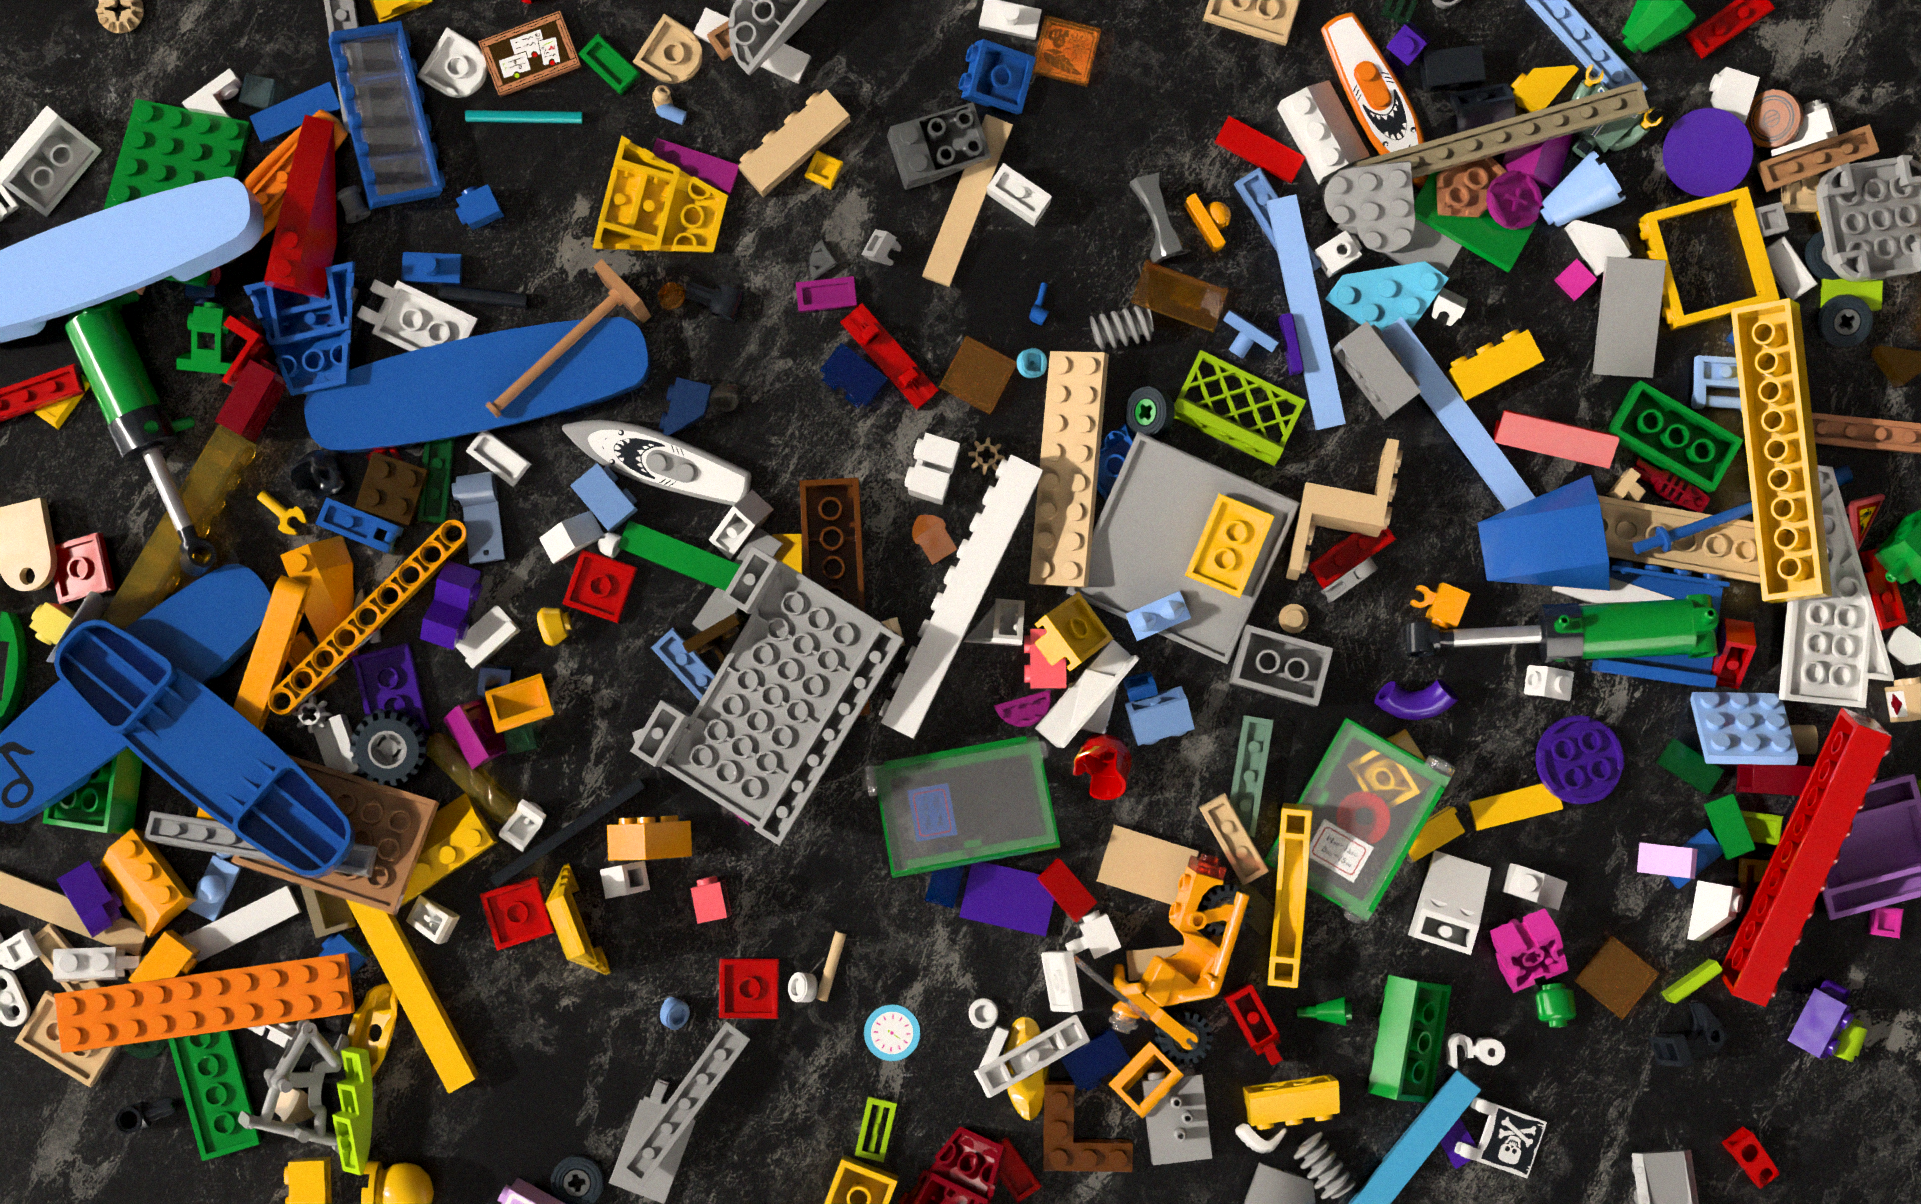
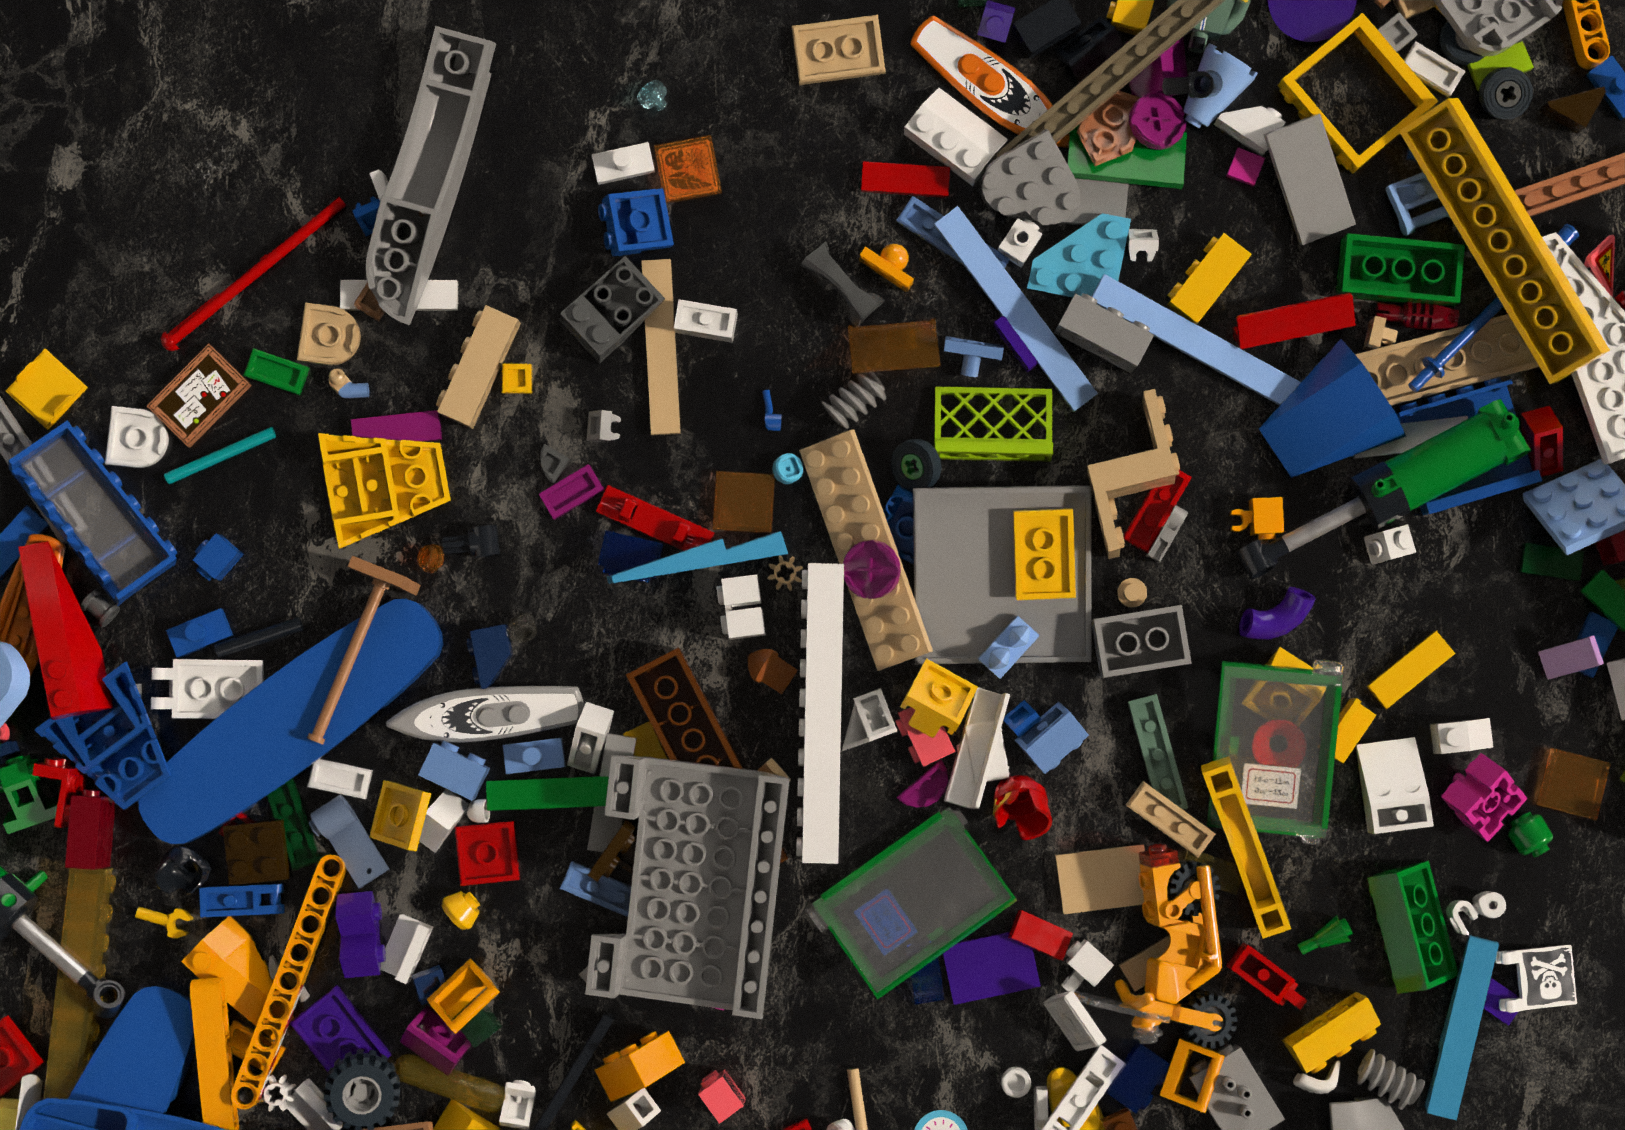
camera: 20 degrees left, 0 degrees up
(537, 515) = (400, 815): none -> yellow tile
(682, 517) = (534, 755): none -> medium blue tile
(921, 407) = (706, 556): none -> dark azure slope
(1066, 487) = (871, 569): none -> magenta tile
(1560, 180) = (1191, 84): none -> black axle
(1579, 760) = (1449, 602): dark purple tile -> none

